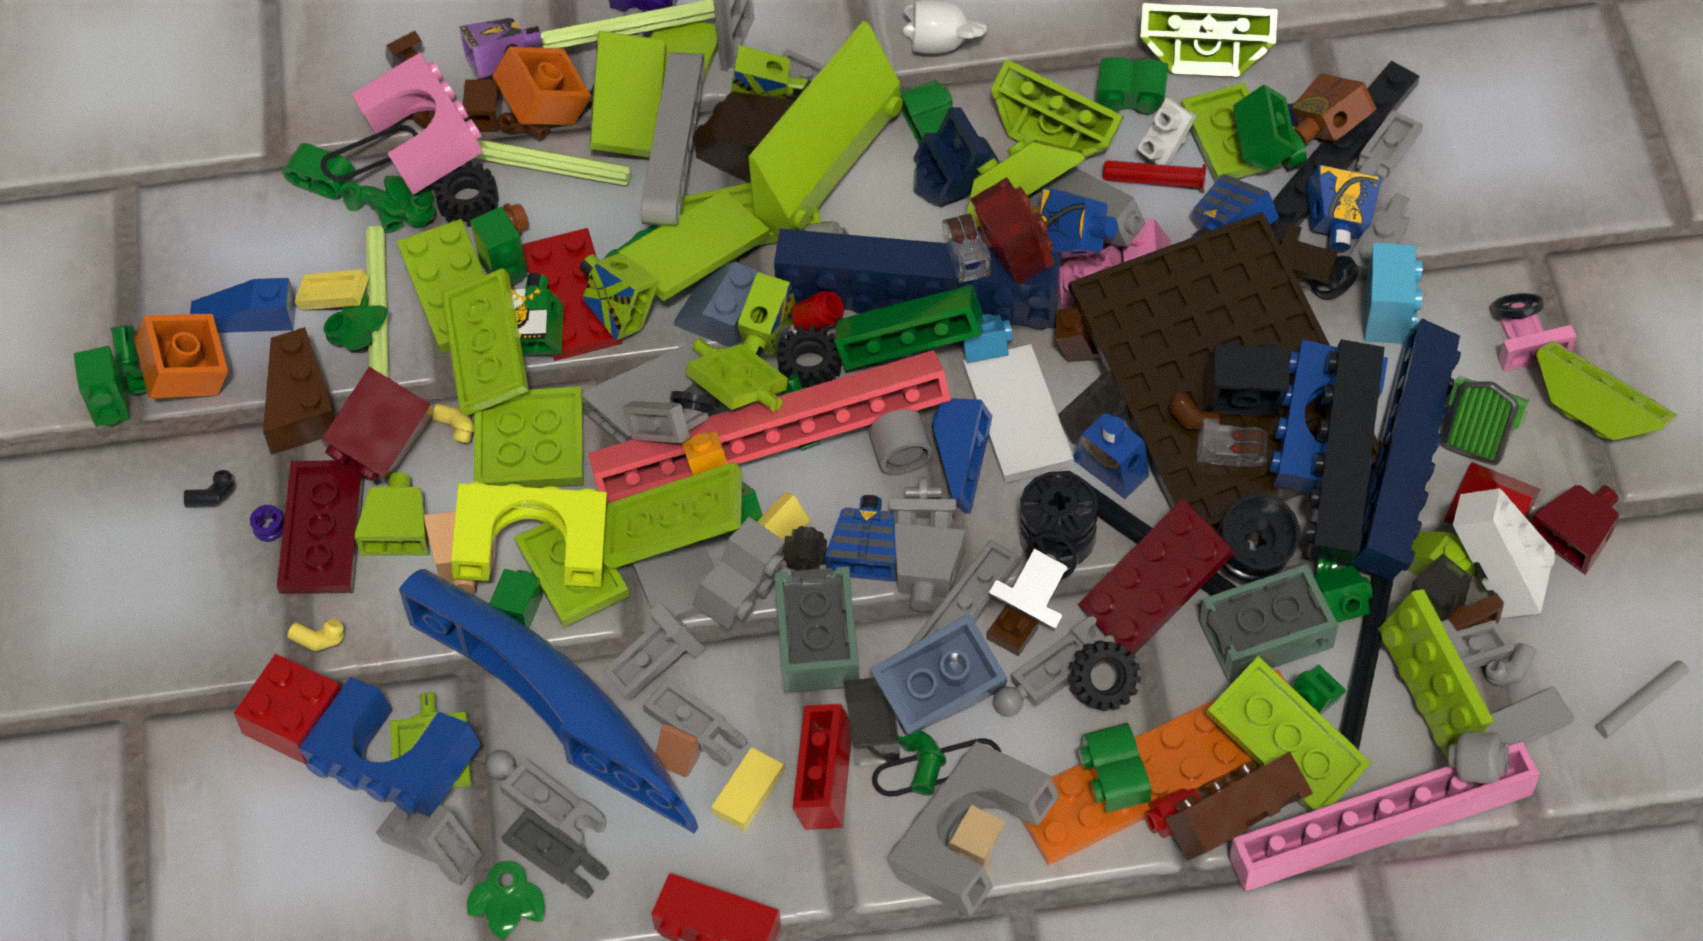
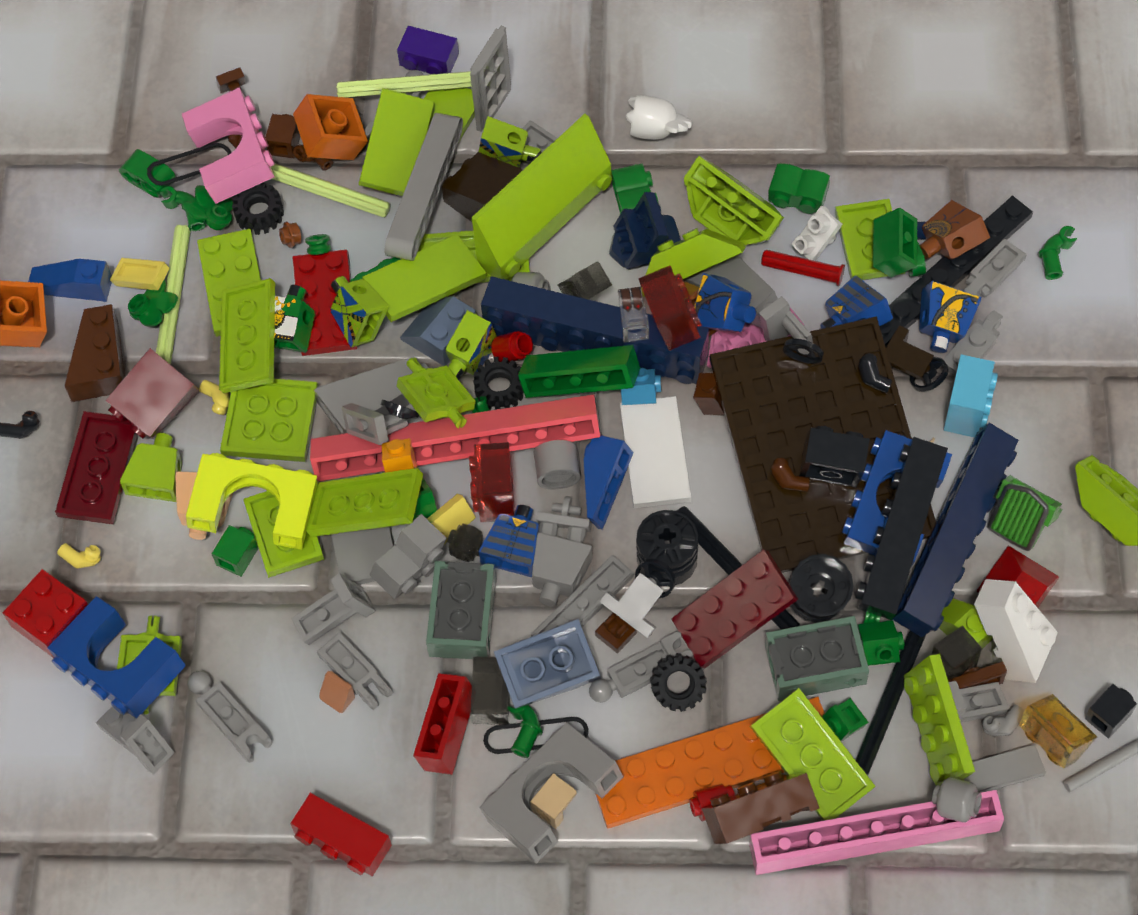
camera: 10 degrees right, 5 degrees up
(258, 518) = (53, 453): dark purple bush -> none
(489, 40) = (299, 81): medium lavender torso -> none
(499, 244) = (273, 257): green brick -> none
(506, 904) = (183, 796): green plate -> none
(550, 225) = (318, 244): none -> green bush
(553, 852) = (226, 759): dark grey hinge -> none
(566, 699) = (269, 656): blue slope -> none
(747, 788) = (386, 730): light yellow tile -> none
(825, 470) = (492, 481): none -> clear red brick
(898, 221) = (586, 282): none -> clear smoke panel
(1098, 398) = (712, 459): clear smoke slope -> none
(1113, 455) = (718, 496): blue torso -> none
(1116, 768) = (671, 760): green brick -> none
(1150, 231) = (780, 322): none -> light grey piece
(1208, 37) = (866, 157): wedge -> none
(1231, 444) = (815, 507): clear leg -> none
(1269, 278) = (870, 373): none -> black arm
(1451, 118) = (1051, 251): none -> green piece
(1525, 330) = (1075, 441): bright pink piece -> none
(1578, 524) = (1082, 612): dark red torso -> none
(1578, 665) = (1056, 730): none -> clear yellow slope
(1637, 633) = (1111, 710): none -> black brick

